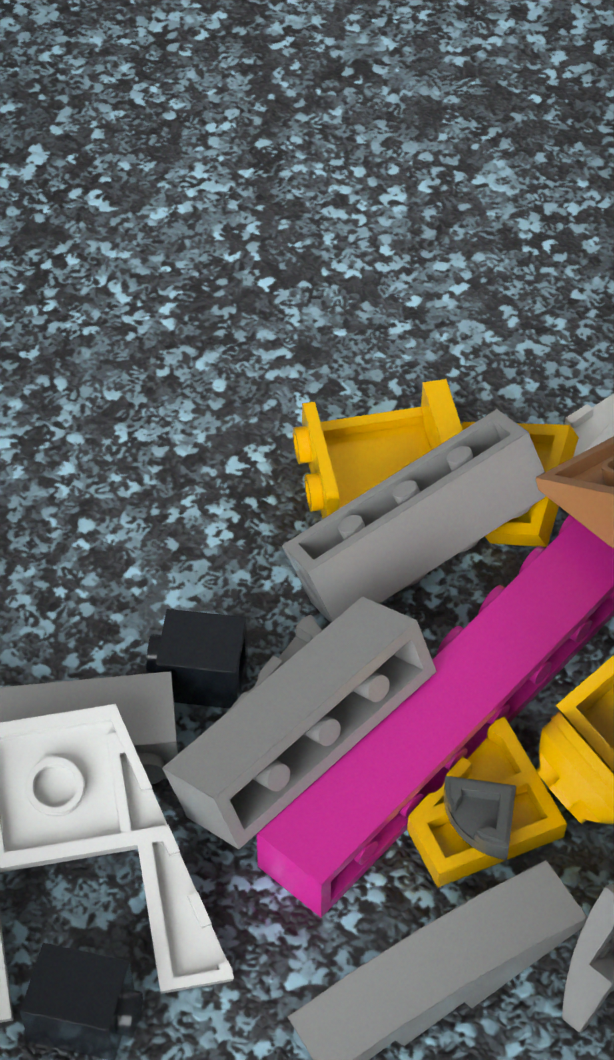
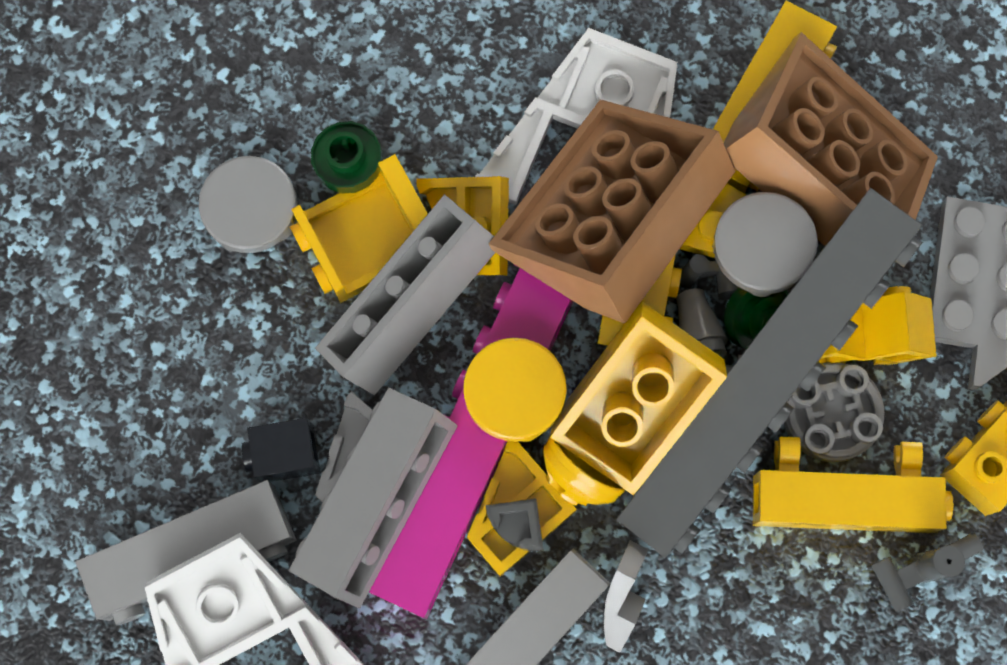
camera: 15 degrees left, 25 degrees up
(249, 401) = (248, 204): none -> light grey tile
(385, 378) = (346, 157): none -> dark green plate
(524, 644) = (515, 389): none -> yellow tile

